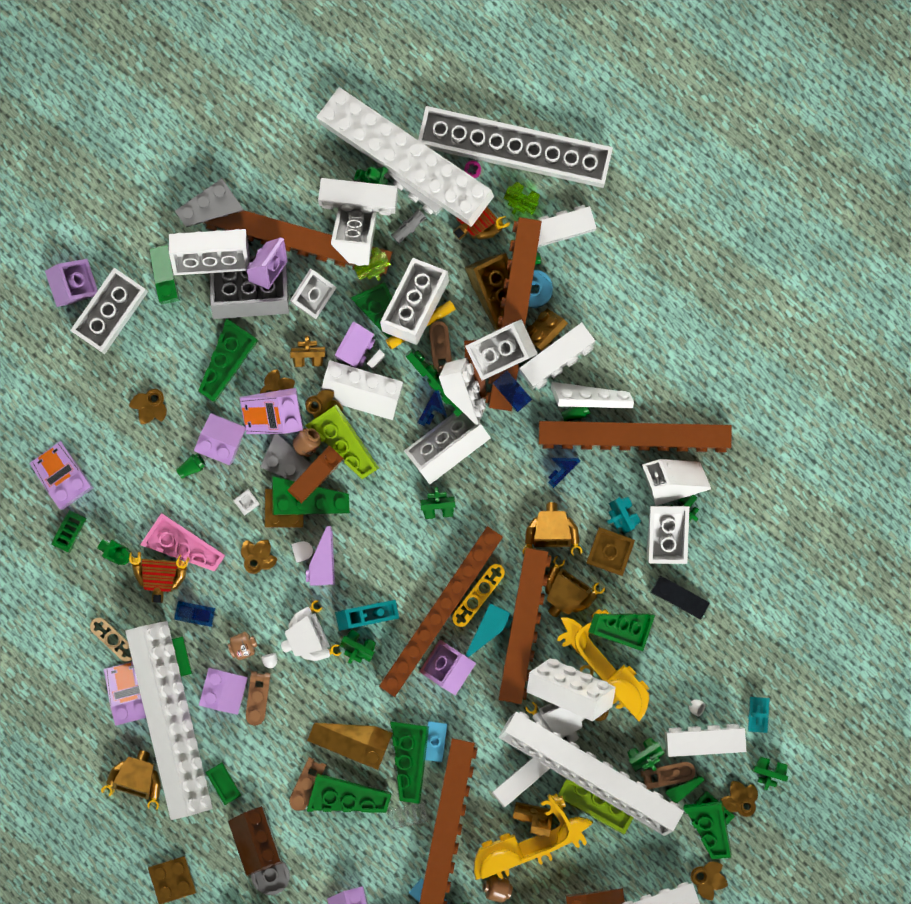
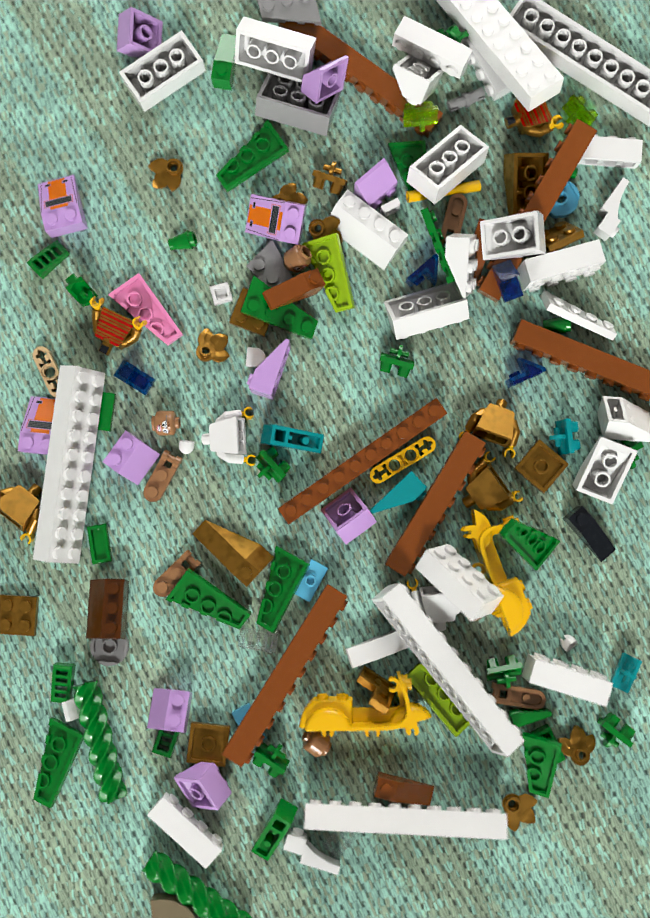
camera: 20 degrees right, 0 degrees up
(220, 439) = (218, 225): lavender slope -> none
(312, 294) = (354, 125): white slope -> none
(588, 297) = (609, 212): none -> white slope

